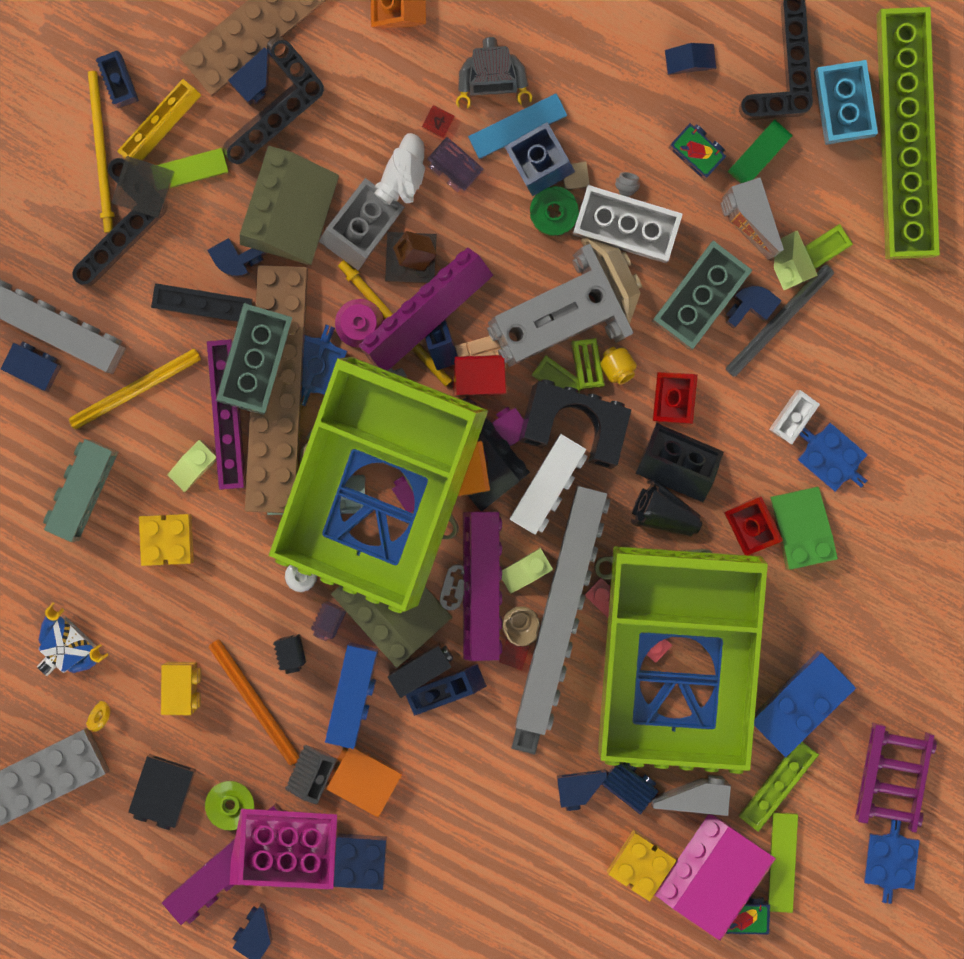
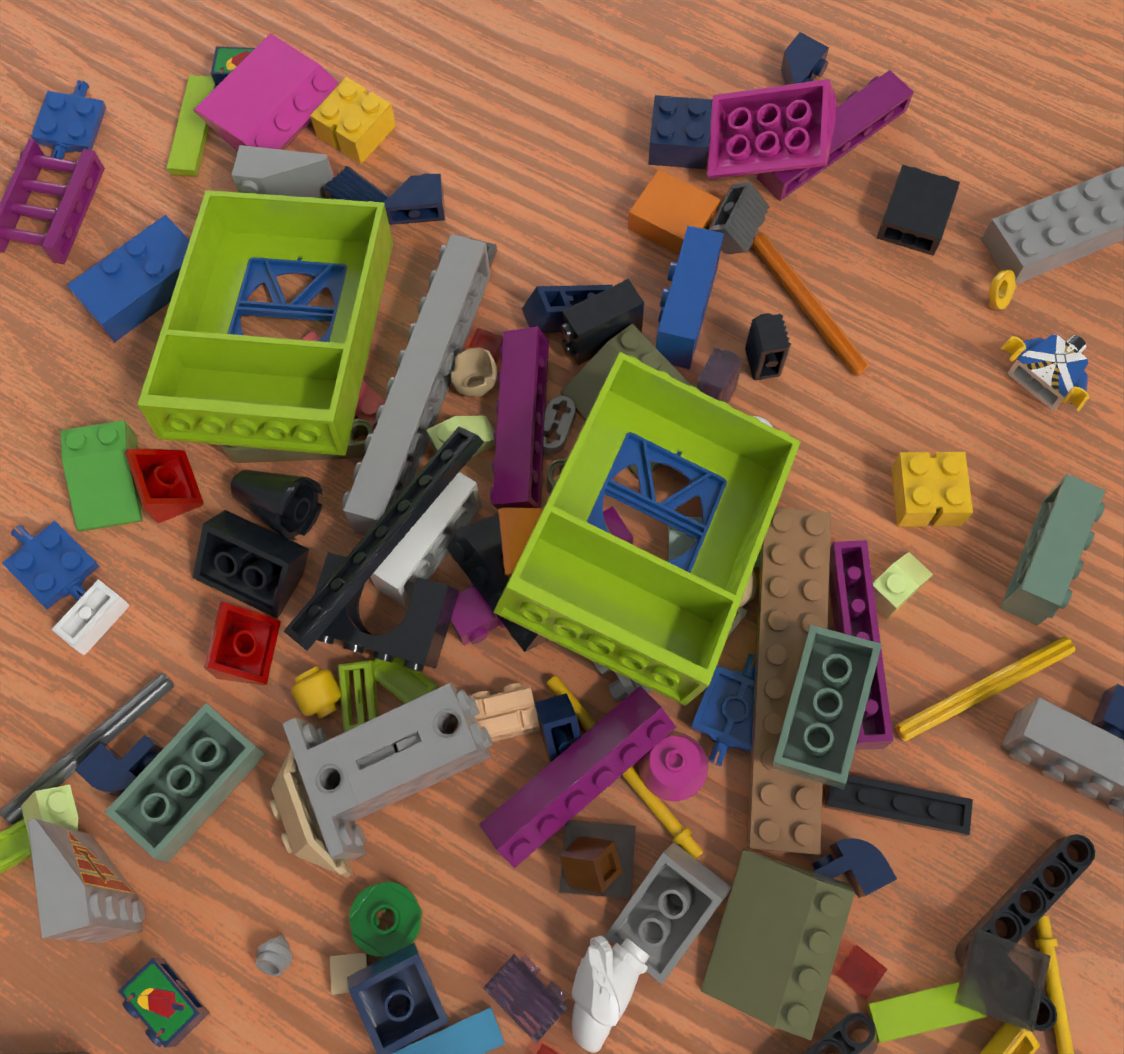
camera: 175 degrees left, 20 degrees down
(179, 688) = (905, 311): yellow piece -> none
(216, 806) = (836, 183): lime dish -> none
(232, 191) = (860, 972): none -> clear red tile
(479, 376) = (507, 677): red slope -> none
(573, 473) = (383, 538): none -> black tile
(627, 224) = (278, 892): white brick -> none
(760, 152) = (71, 995): green beam -> none
(778, 786) = (188, 196): lime tile -> none

